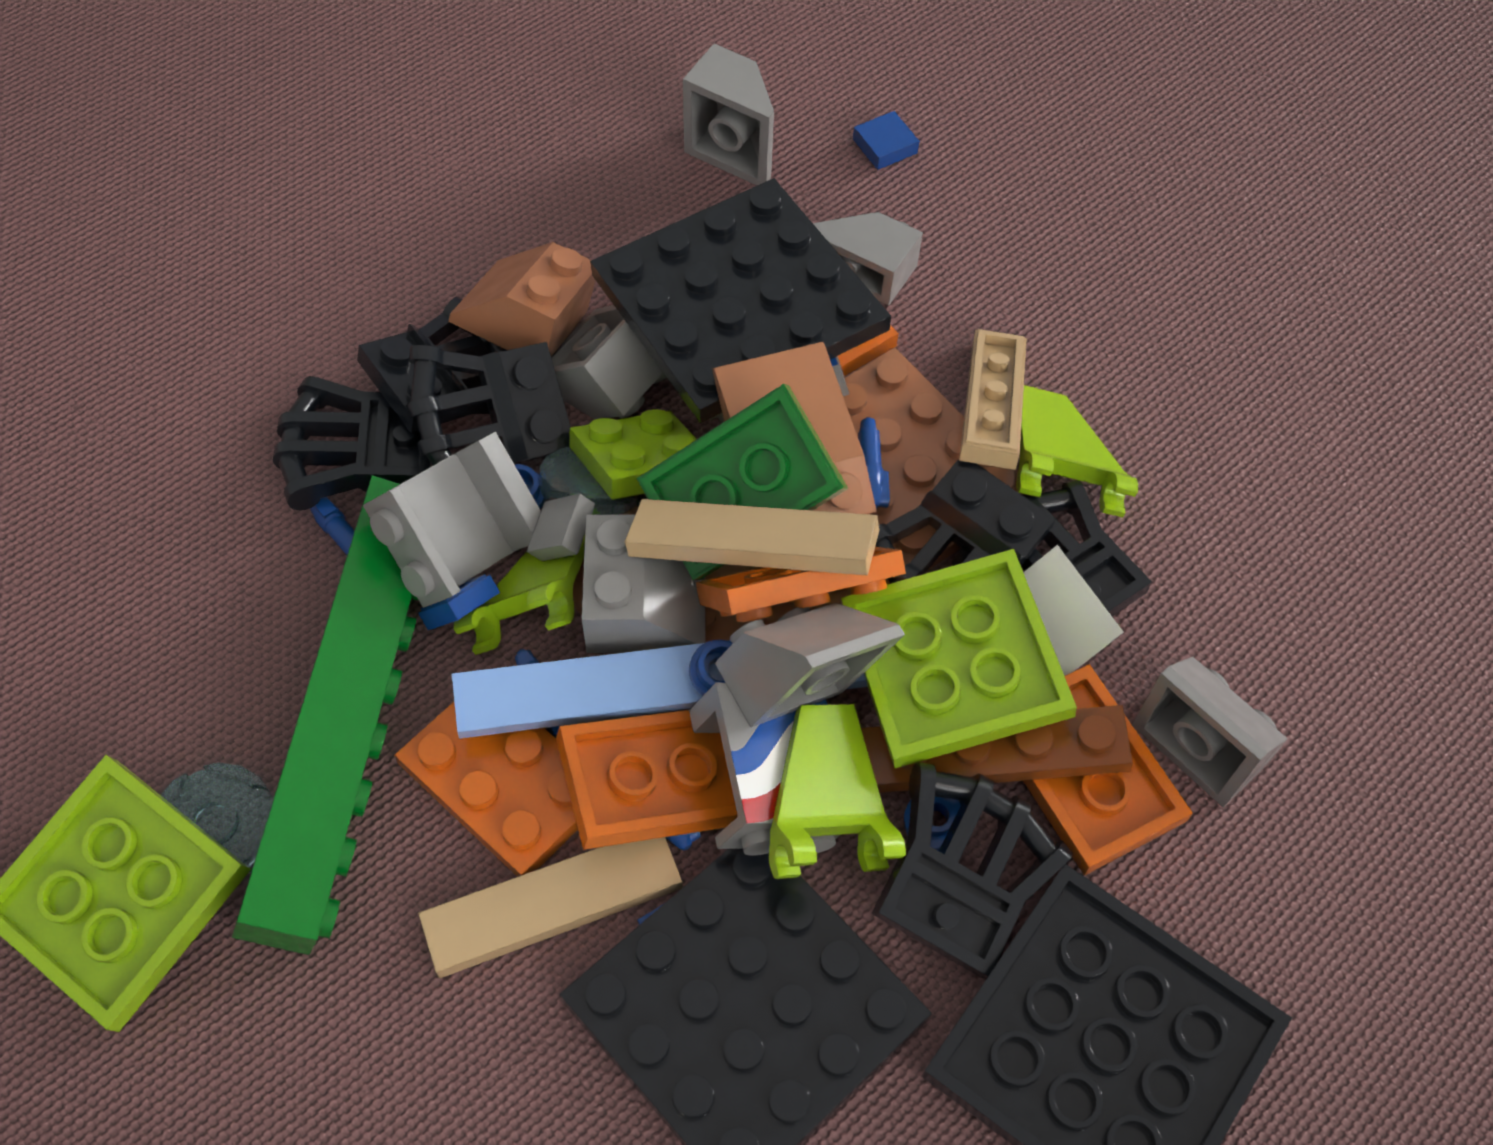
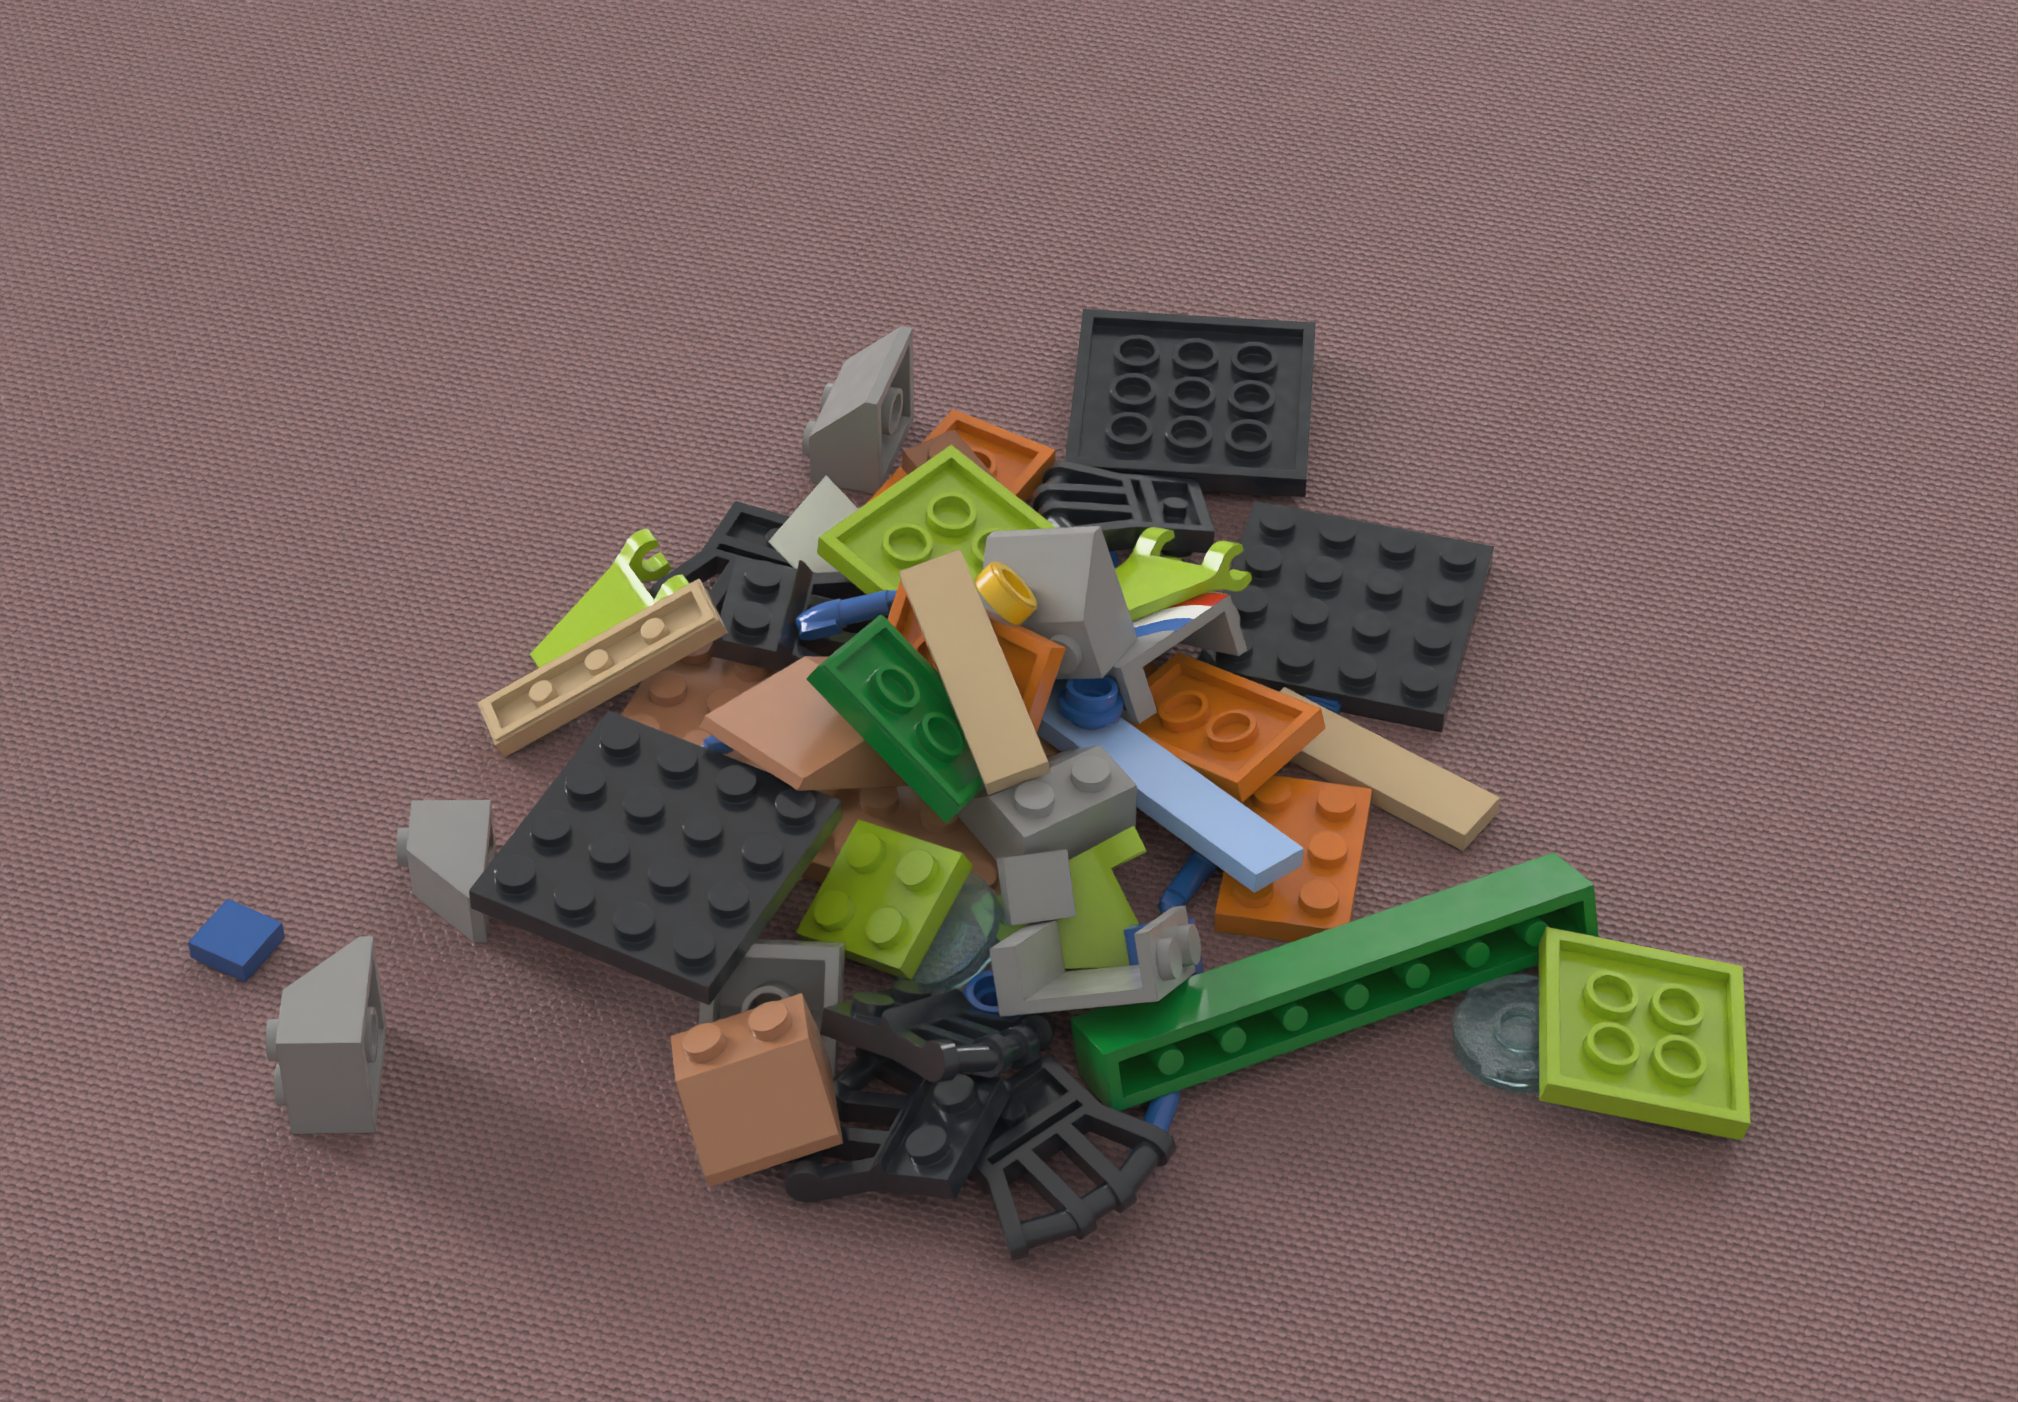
camera: 120 degrees left, 15 degrees down
(811, 589) = (1006, 593): none -> yellow tile
(930, 540) = (833, 616): none -> blue piece

